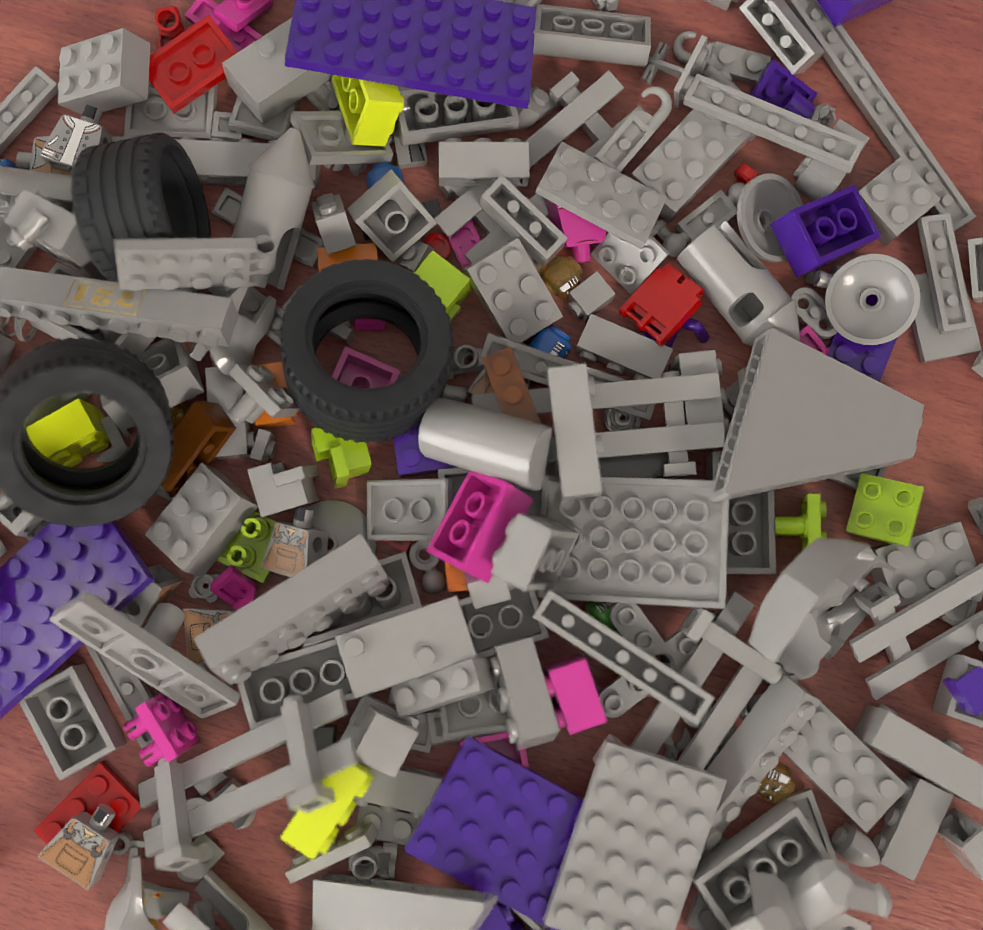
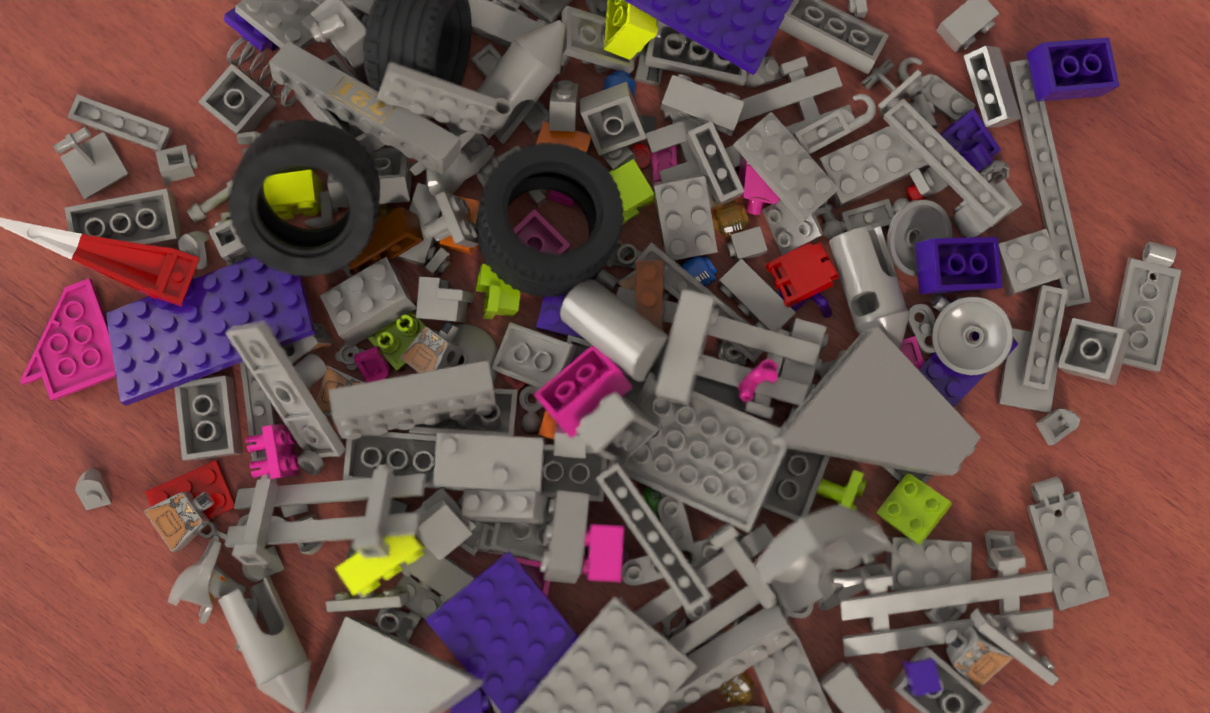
camera: 30 degrees right, 0 degrees up
(207, 722) = (311, 462): none -> light grey tile
(671, 423) = (764, 371): none -> dark pink piece
(757, 153) = (928, 181): none -> light grey bracket

